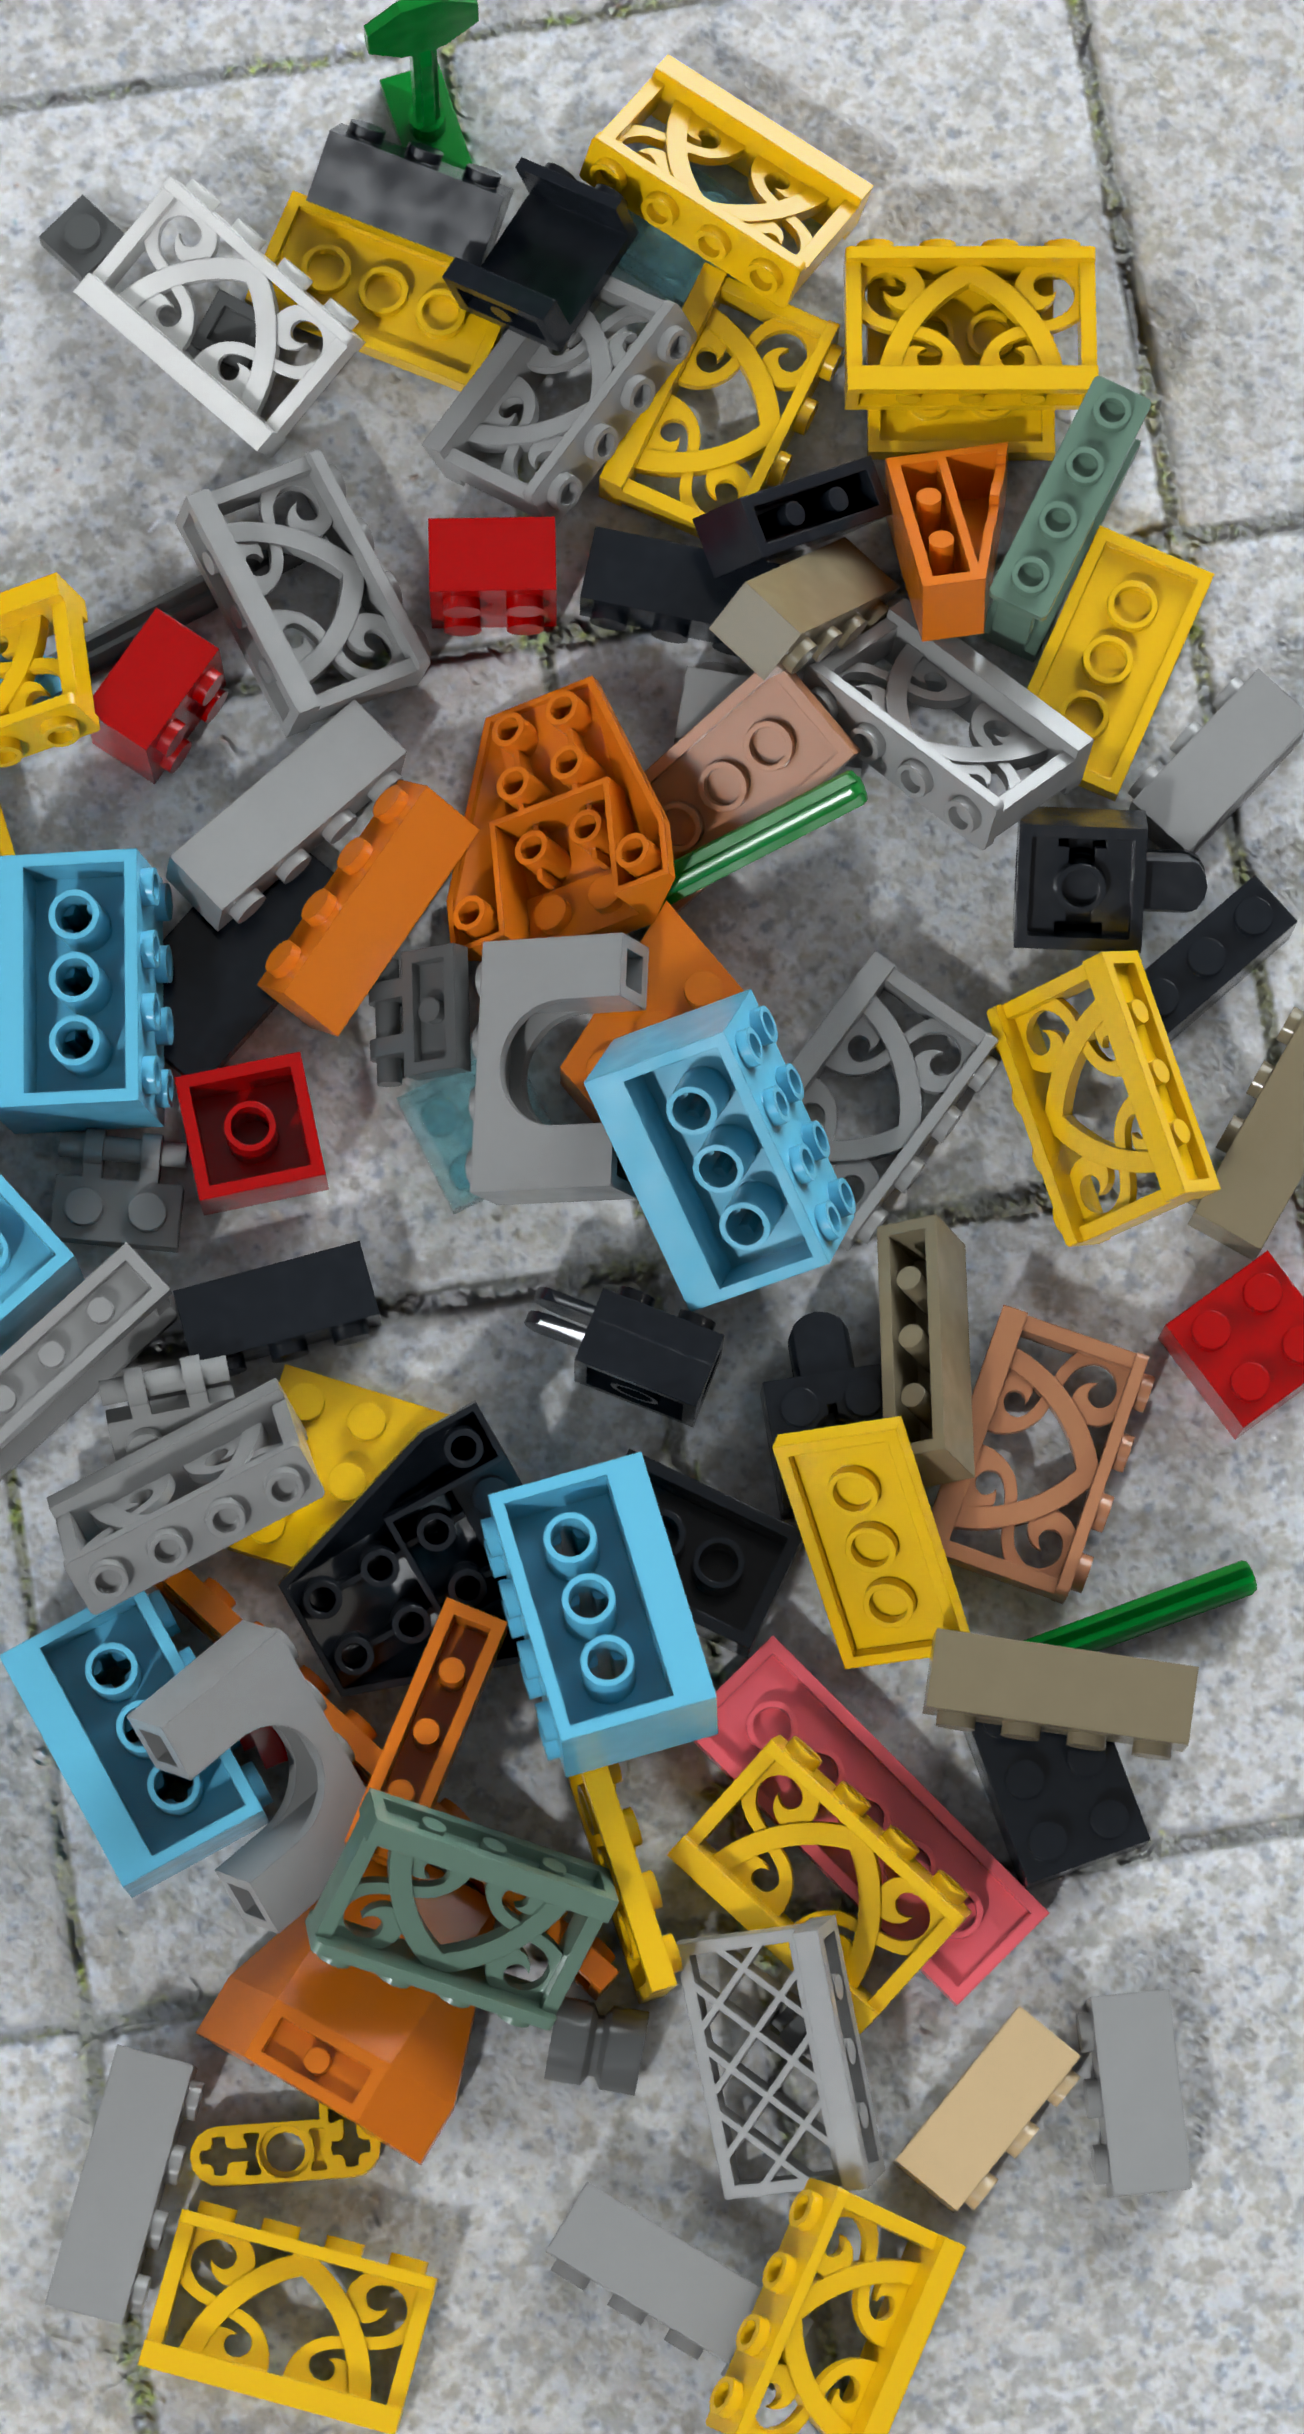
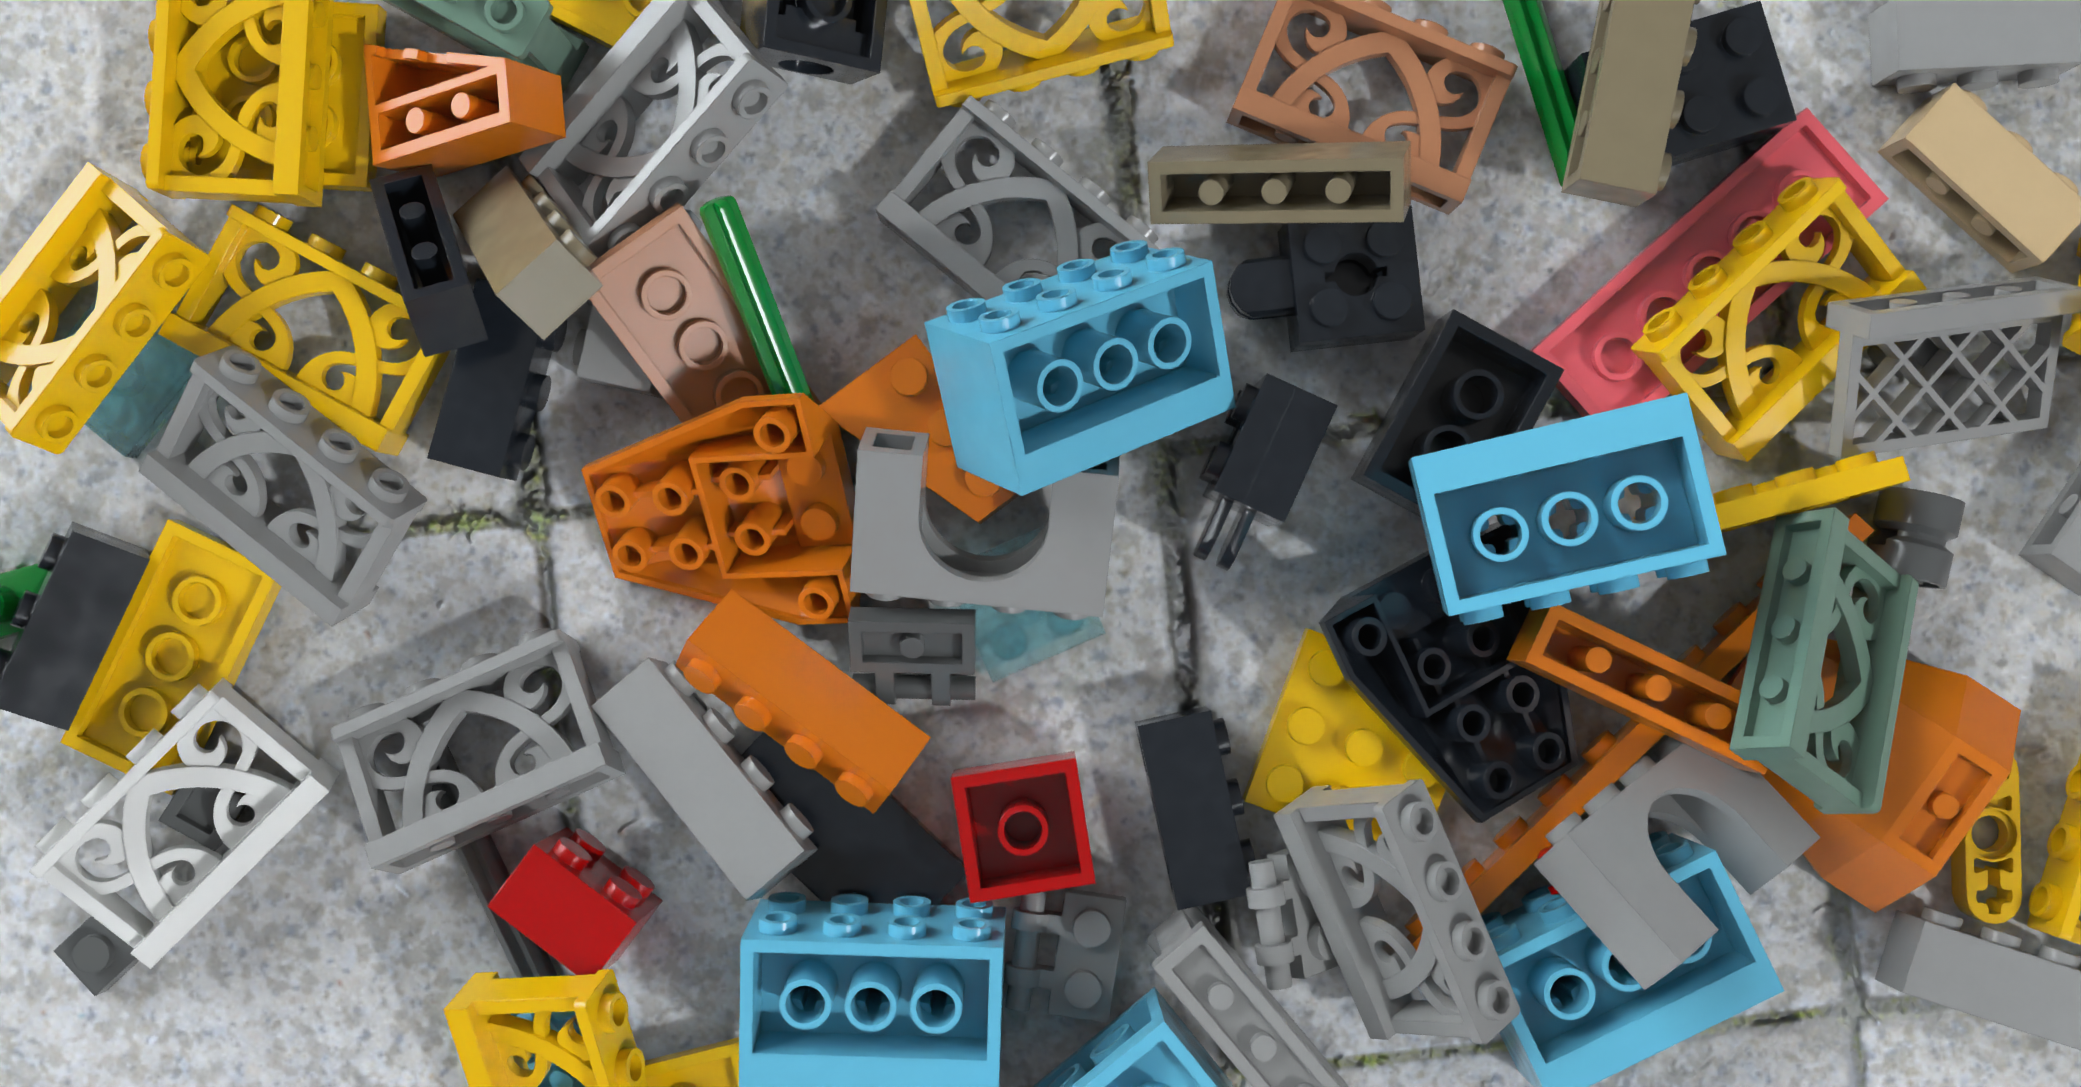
camera: 85 degrees left, 10 degrees up
(492, 574) = (469, 562): red brick -> none
(548, 257) = (141, 488): black panel -> none
(870, 1539) = (1468, 243): yellow plate -> none

